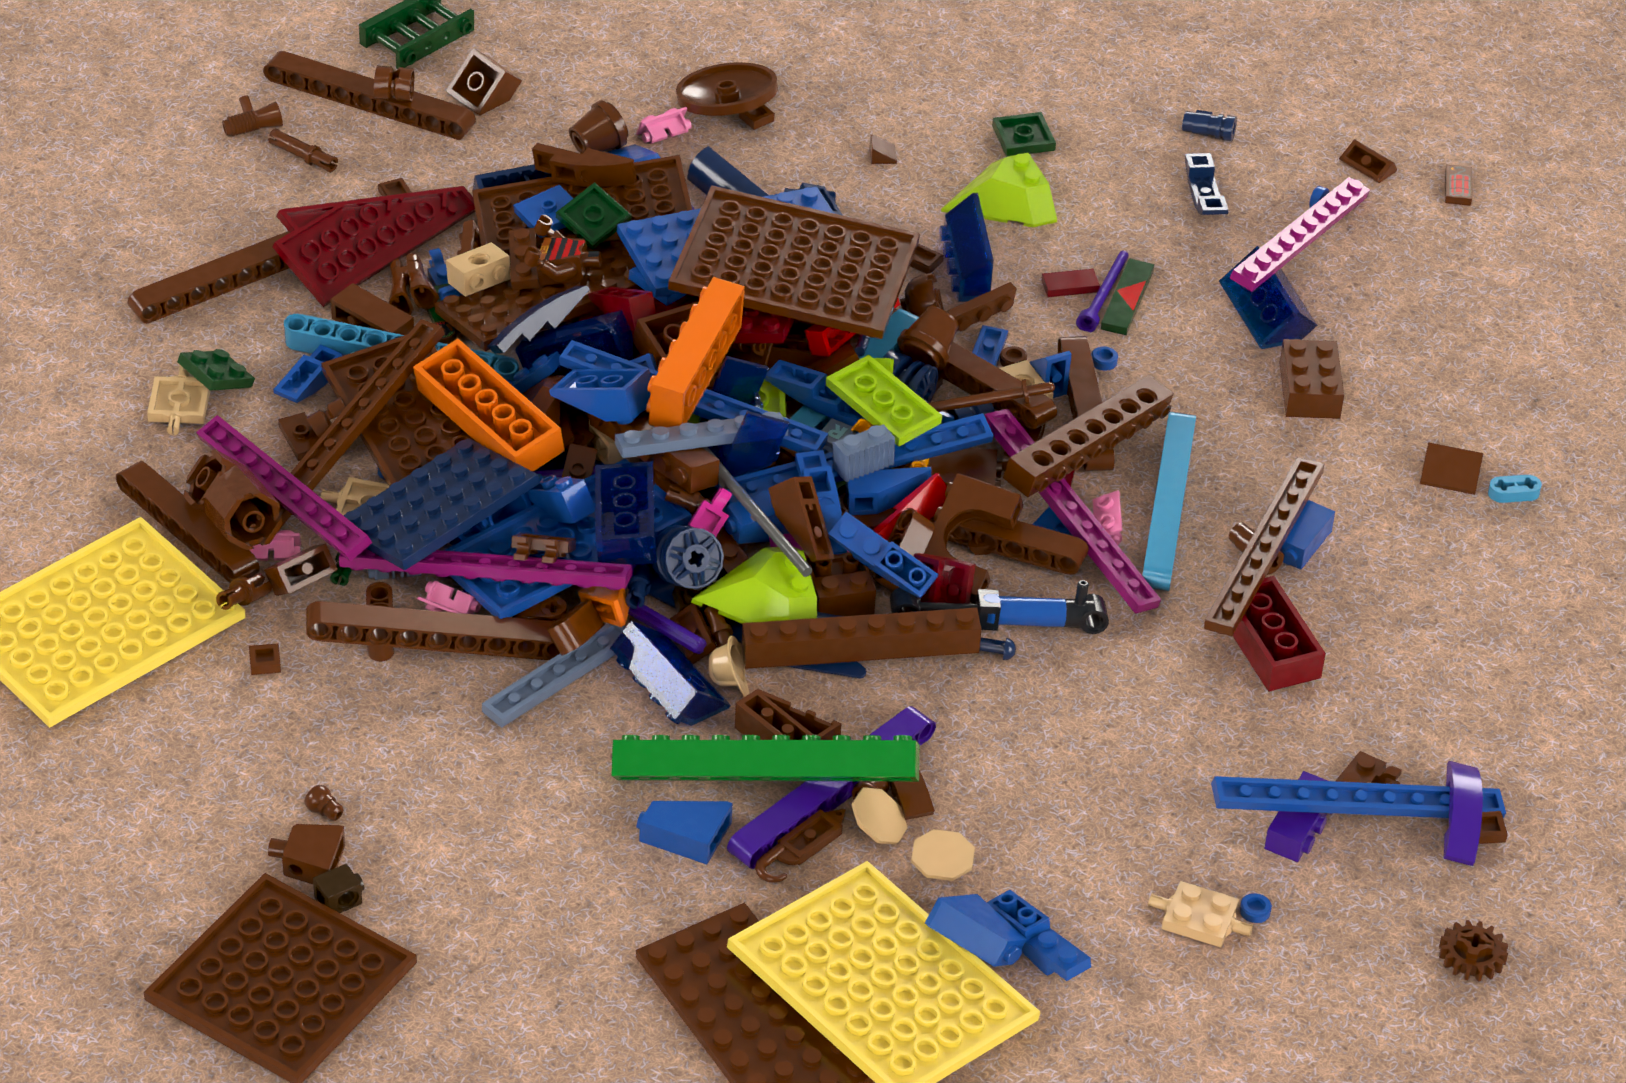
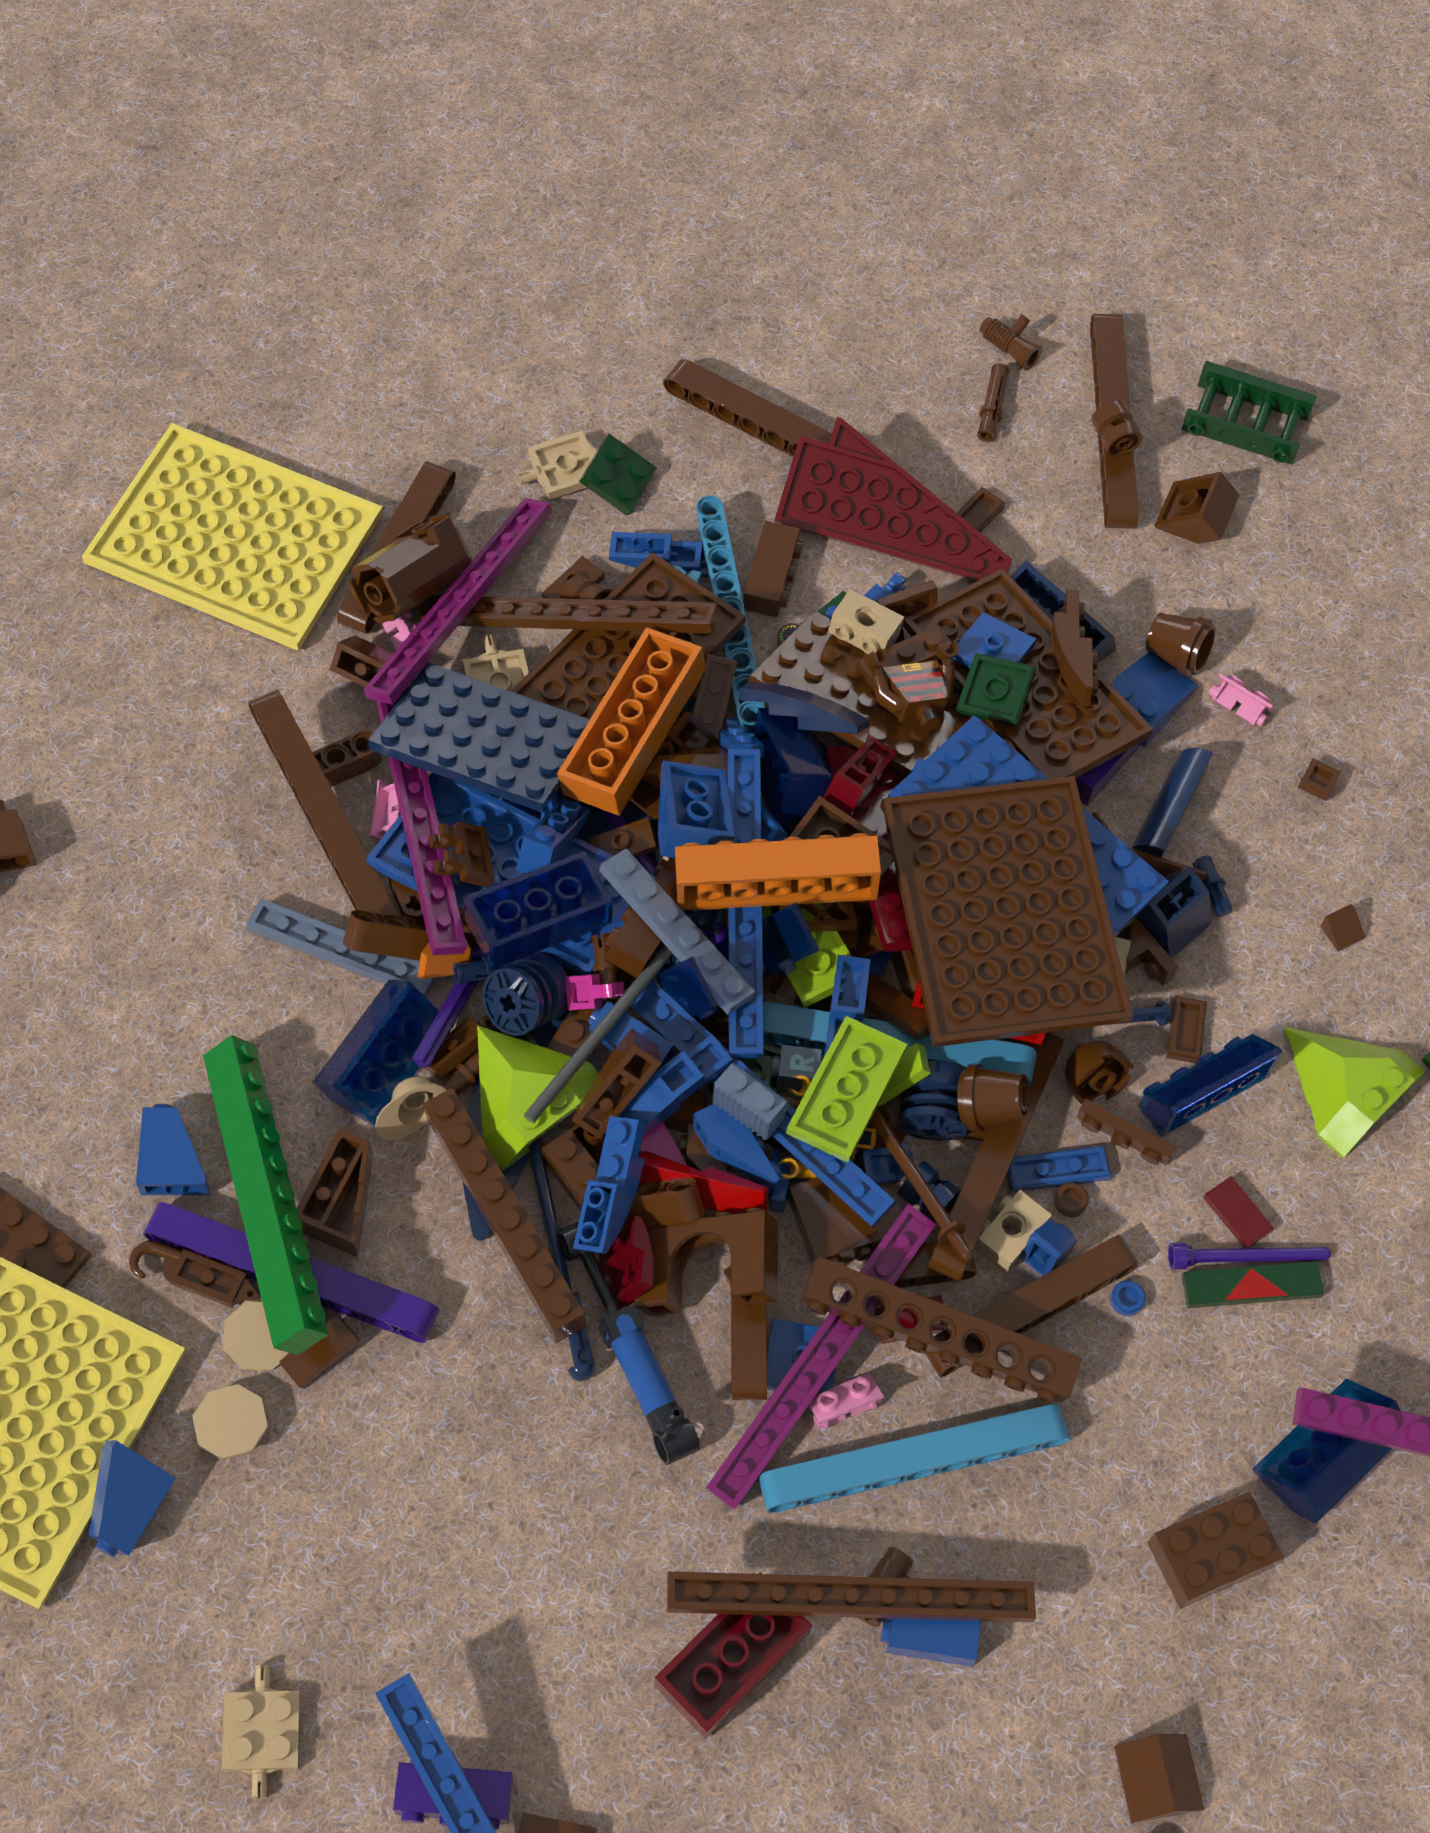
camera: 65 degrees right, 20 degrees up
(244, 590) = (314, 630): reddish brown arm -> none
(264, 659) = (243, 689): reddish brown plate -> none
(321, 801) = (74, 821): reddish brown piece -> none
(414, 276) = (833, 580): reddish brown piece -> none
(727, 89) = (1332, 732): reddish brown dish -> none
(1043, 945) = (148, 1567): blue slope -> none
(1255, 908) = (298, 1790): blue tile -> none

